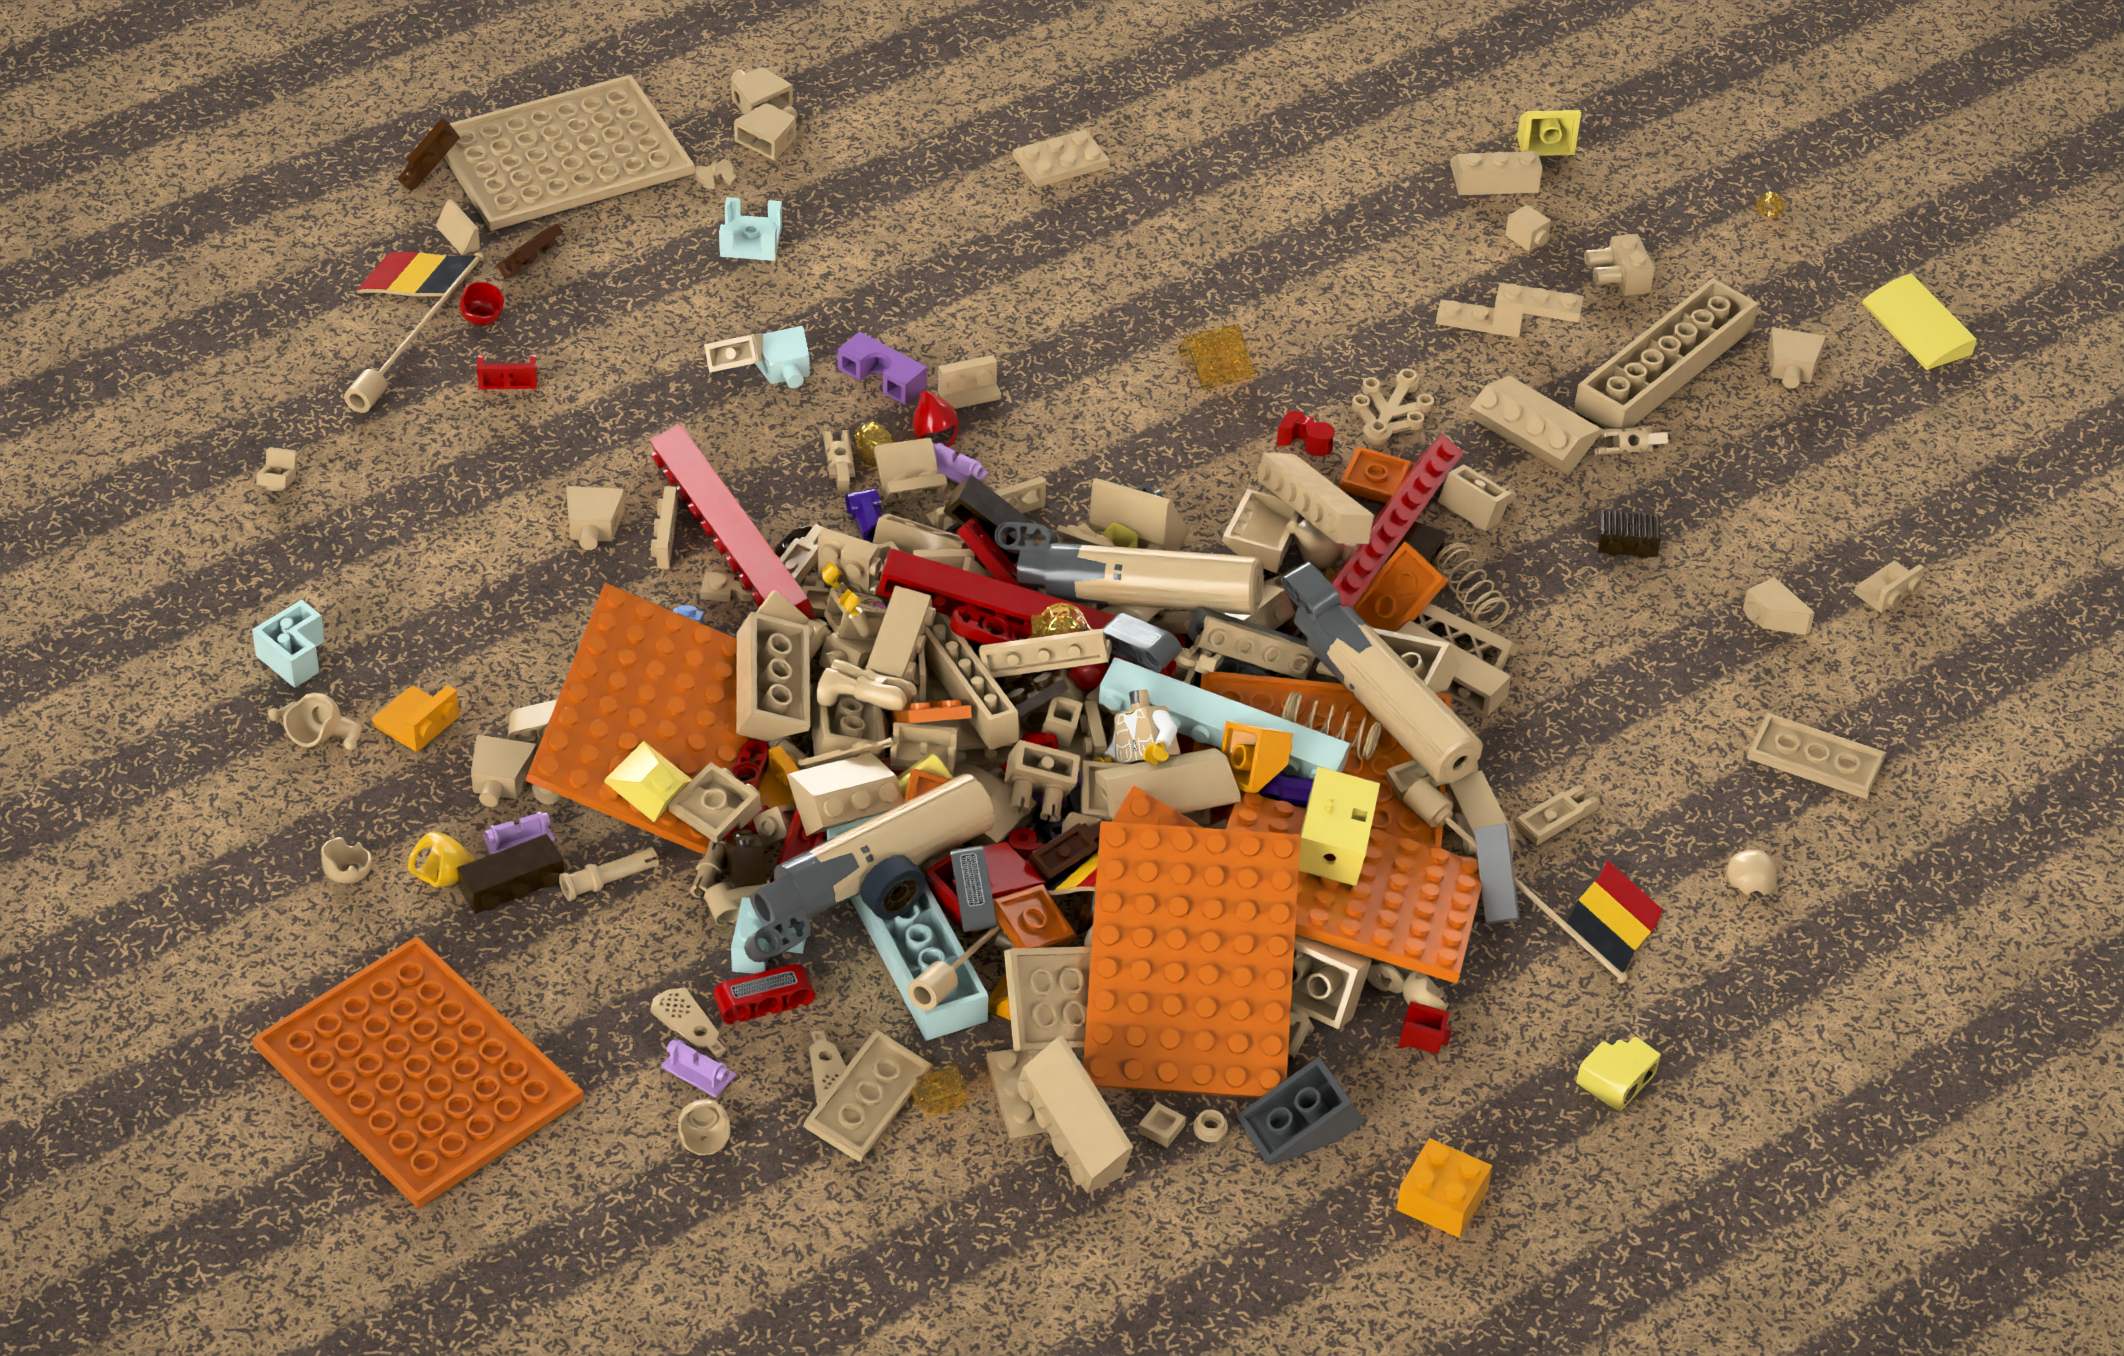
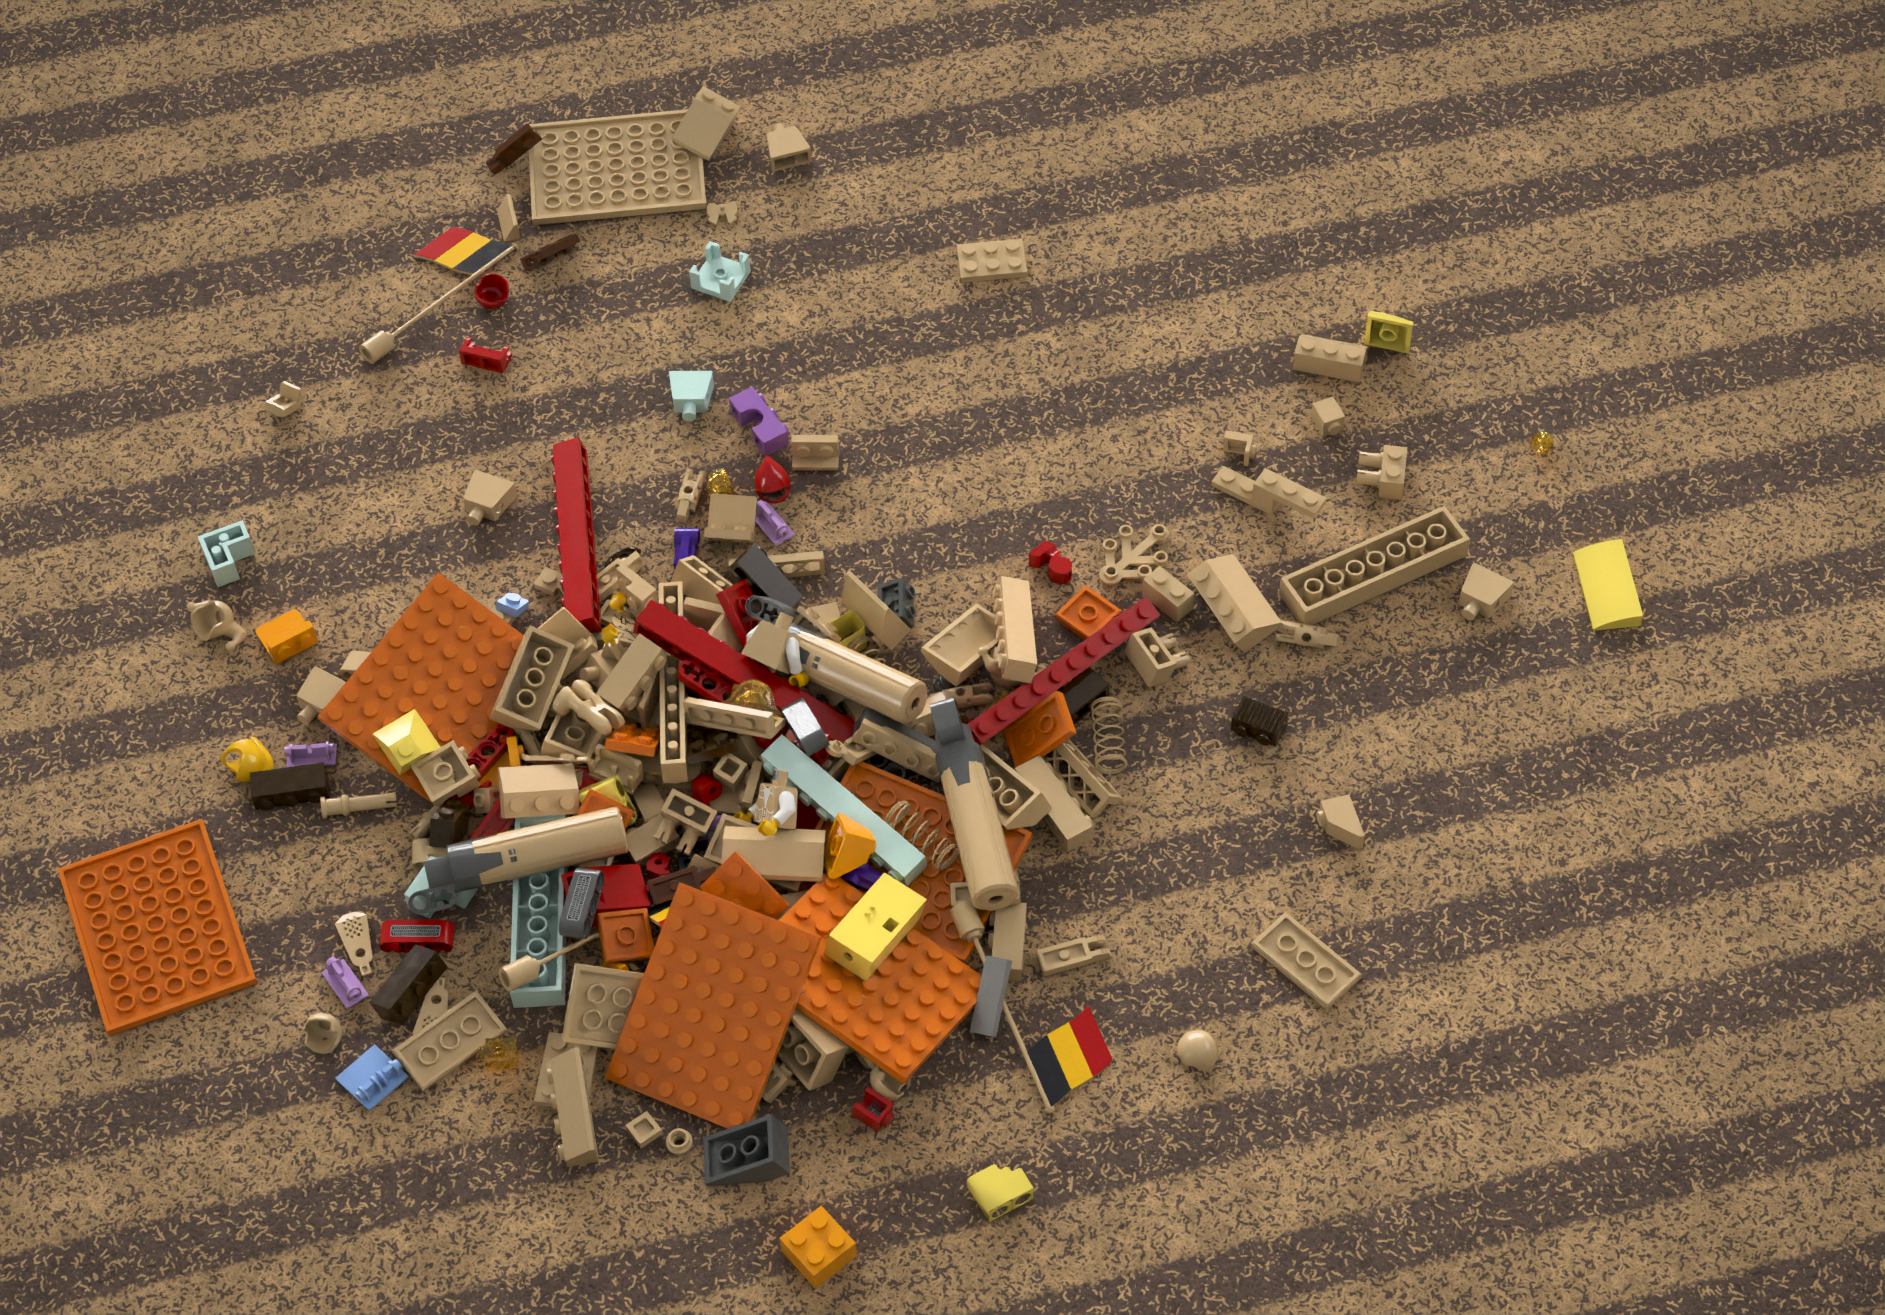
camera: 25 degrees right, 10 degrees up
(339, 857) = (181, 737): tan hair -> none
(653, 82) = (706, 123): none -> tan slope
(665, 527) = (534, 521): tan plate -> none
(734, 352) = (653, 380): tan slope -> none
(767, 129) = (777, 182): tan torso -> none
(785, 1046) = (408, 984): none -> dark brown brick
(790, 1161) = (372, 1077): none -> light blue hinge
(892, 887) = (527, 884): black wheel -> none
(1062, 567) = (777, 648): none -> tan torso
(1218, 356) = (1019, 476): clear yellow bracket -> none
(1448, 274) = (1240, 443): none -> tan bracket
(1462, 429) = (1168, 594): none -> tan brick
(1890, 585) = (1448, 824): tan bracket -> none

